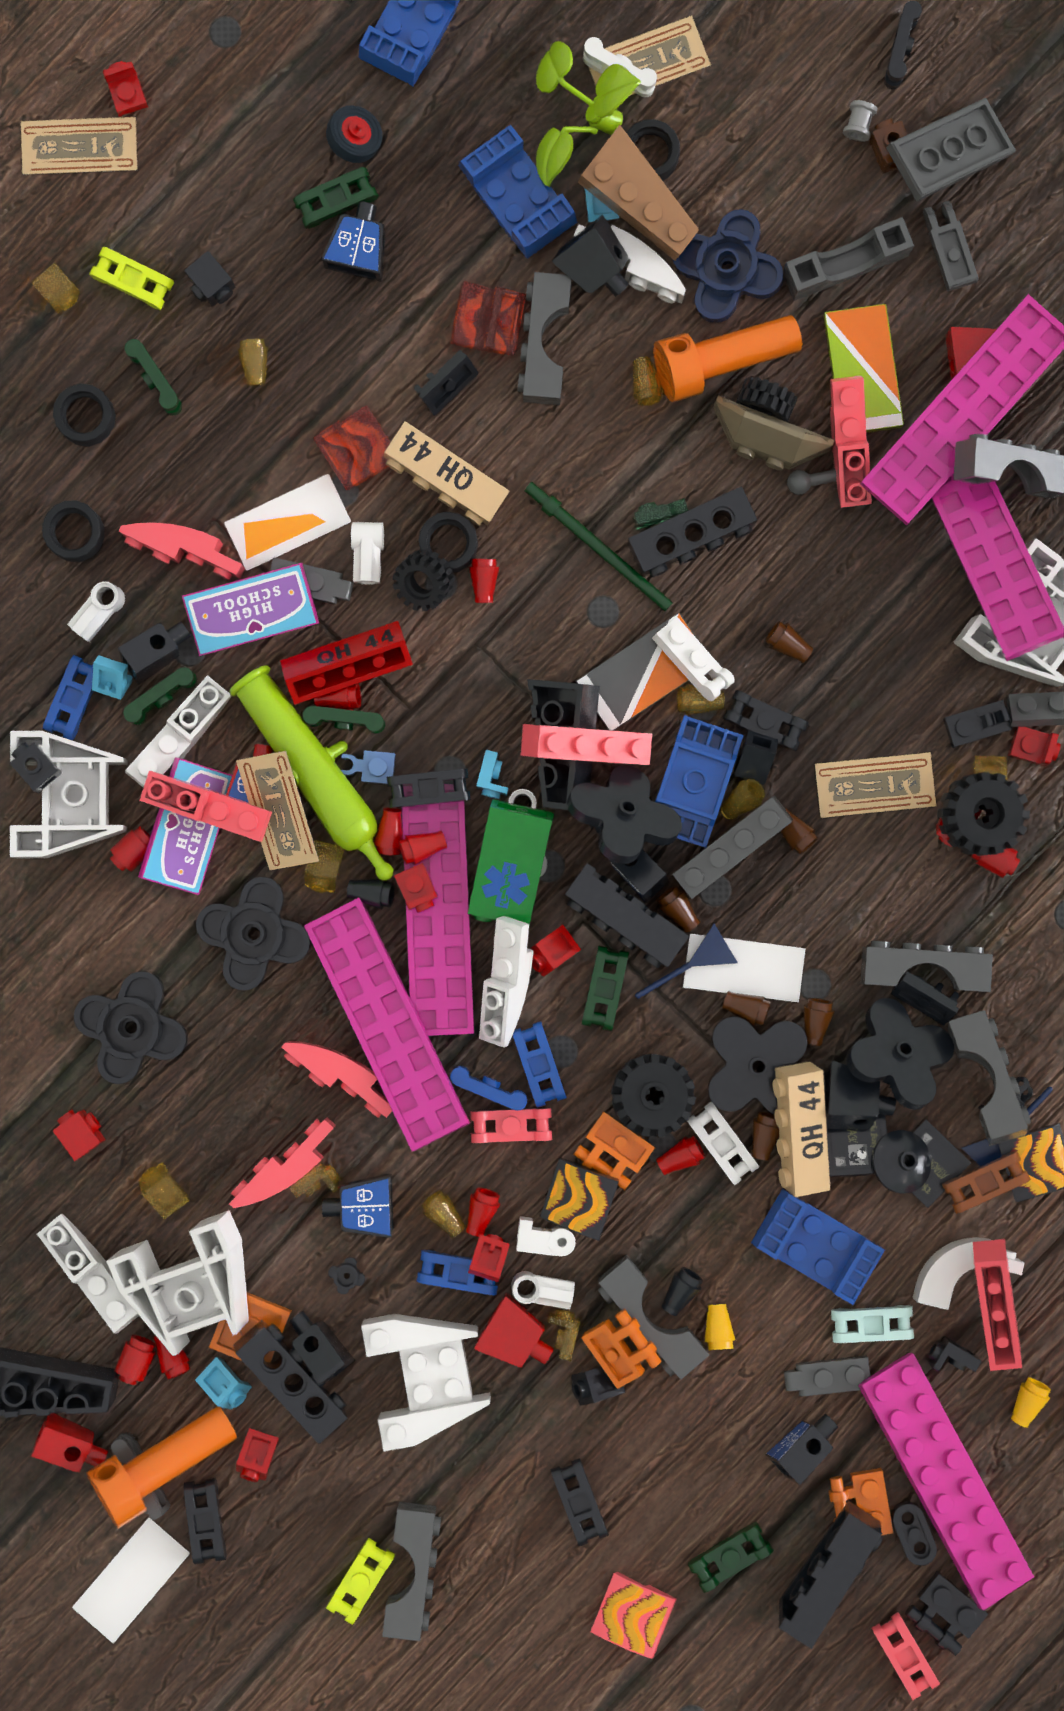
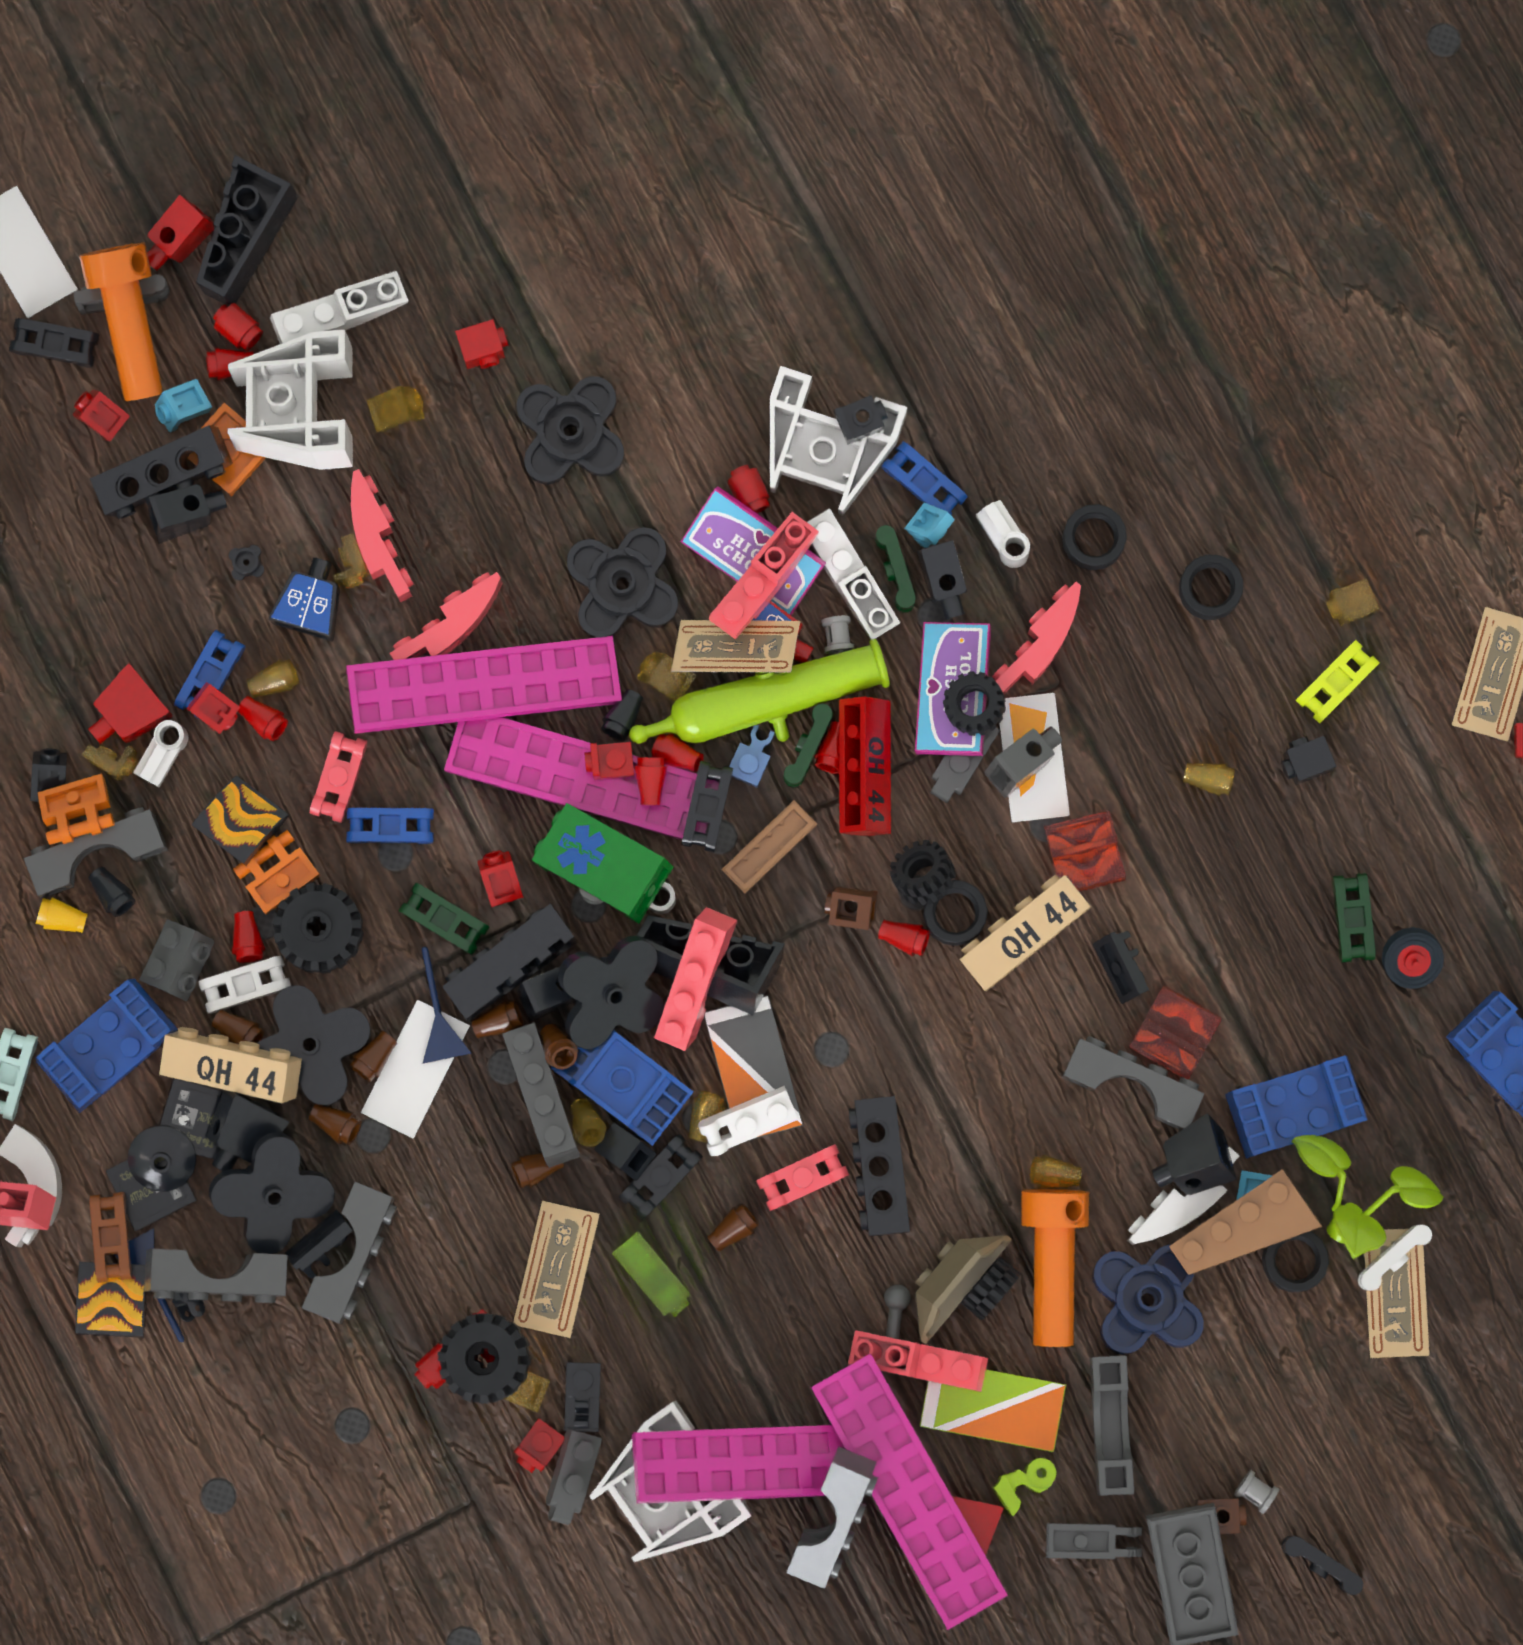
camera: 105 degrees right, 5 degrees down
(153, 376) = (1226, 670): dark green plate -> none
(236, 727) = (837, 634): none -> light grey bush
(240, 590) = (965, 685): none -> black tyre
(294, 526) = (1022, 760): none -> dark grey torso
(357, 245) = (1296, 923): torso -> none
(367, 543) = (980, 829): white piece -> none
(433, 1375) = (117, 615): white wedge -> none
(445, 724) = (769, 847): none -> medium nougat plate
(482, 625) = (840, 915): none -> reddish brown brick
(488, 1088) = (383, 765): blue plate -> none
(490, 769) = (705, 875): medium azure bracket -> none
(508, 984) = (481, 821): white slope -> none
(544, 1241) = (211, 769): white leg -> none
(552, 507) = (956, 1033): dark green bar -> none
(650, 514) = (914, 1130): clear green plate -> none
(688, 844) = (558, 1048): none -> reddish brown cone
(722, 1211) = (177, 960): none -> dark grey bracket
(724, 597) = (802, 1177): none -> coral plate
(854, 698) = (652, 1275): none -> clear neon green brick
(911, 311) = (1037, 1476): none -> lime leg

